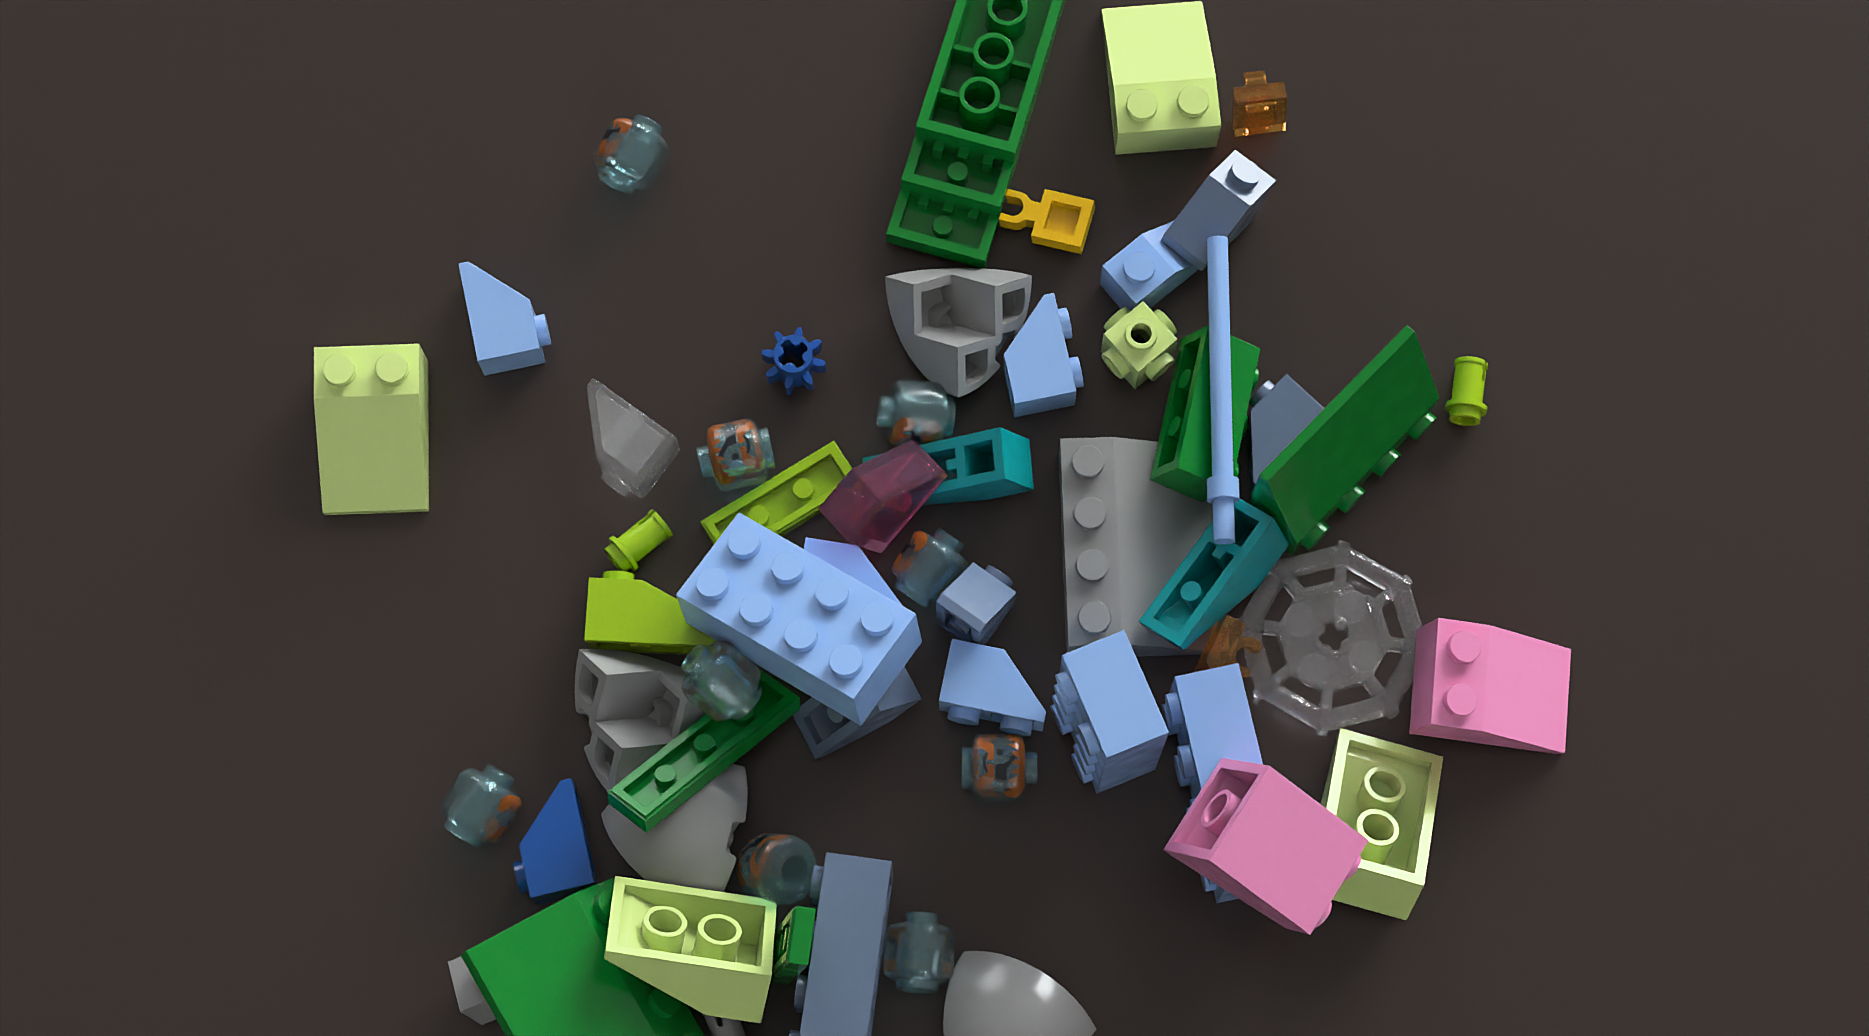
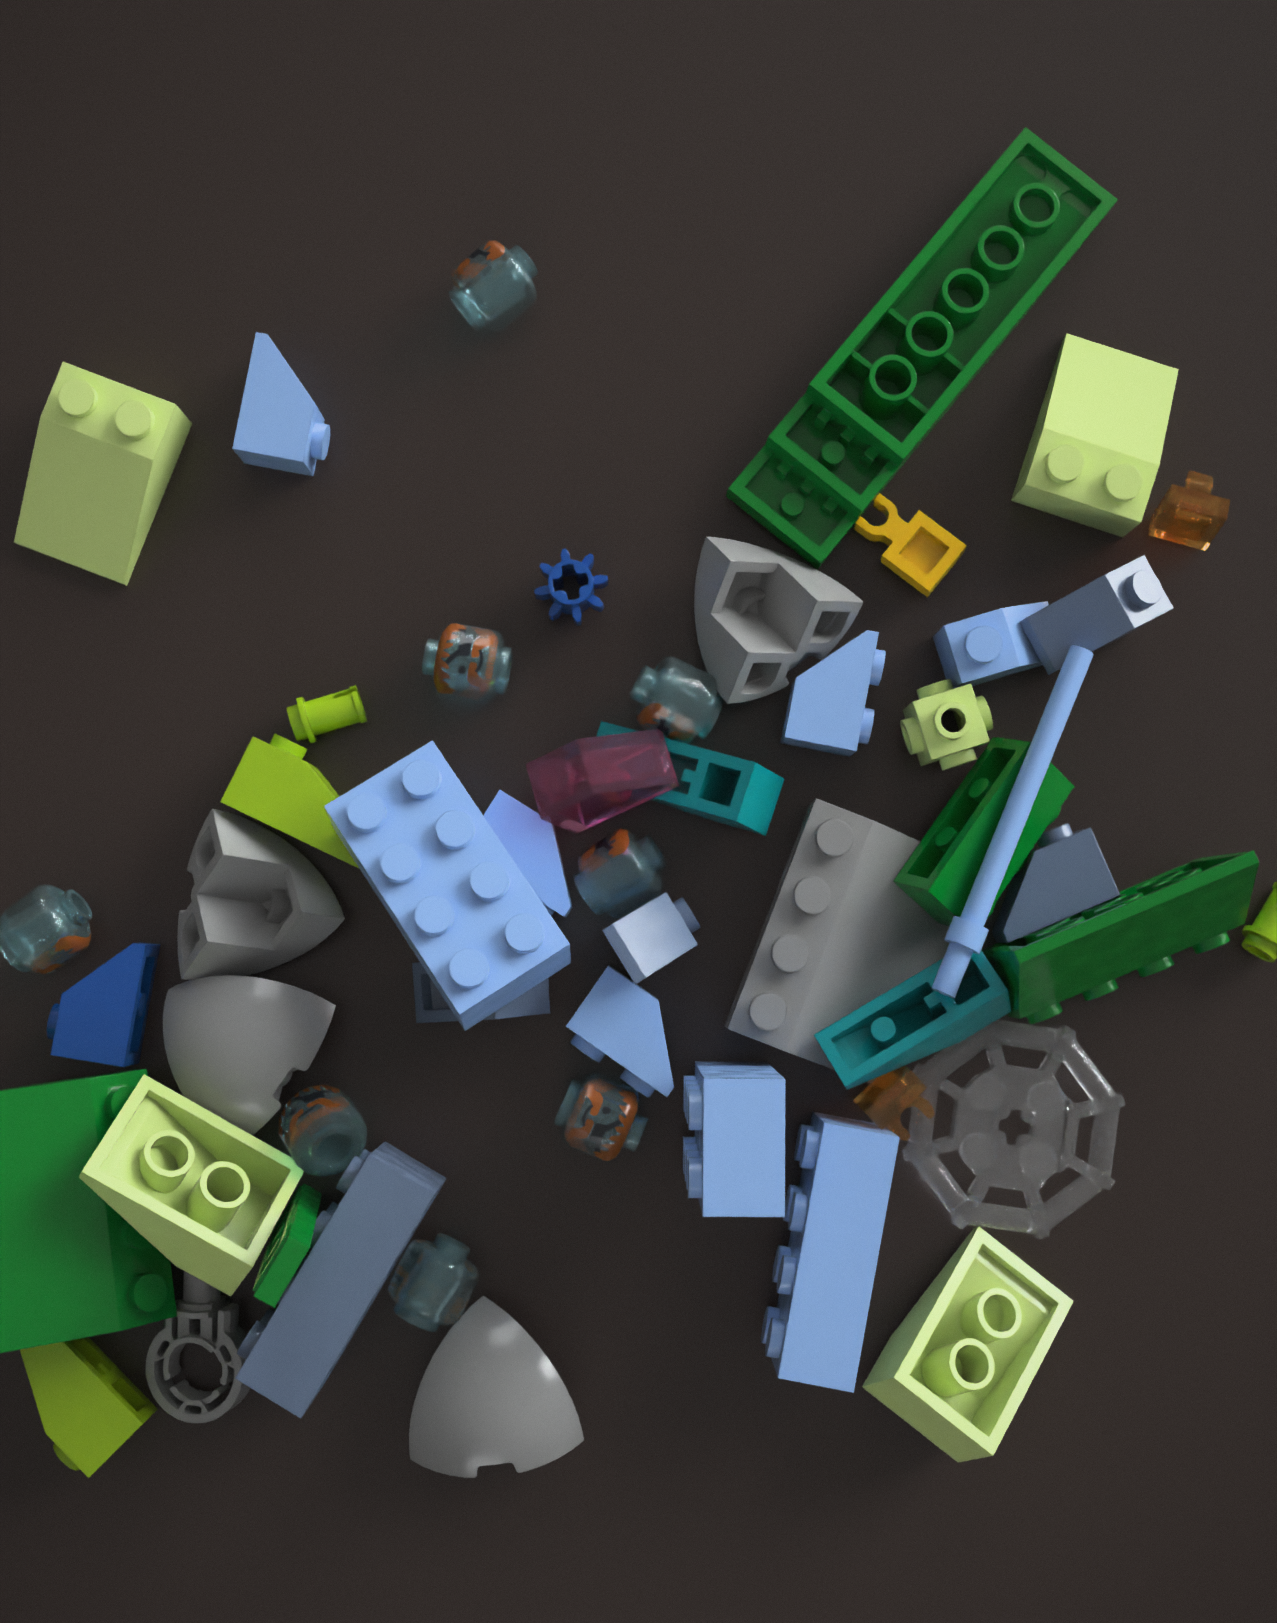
camera: 20 degrees right, 10 degrees up
(628, 443) = (356, 602): clear slope -> none
(699, 757) = (289, 978): green tile -> none
(721, 681) = (340, 913): clear light blue head -> none
(787, 497) = (499, 732): lime tile -> none
(1267, 844) = (840, 1361): bright pink slope -> none
(1489, 687) = (1154, 1257): bright pink slope -> none

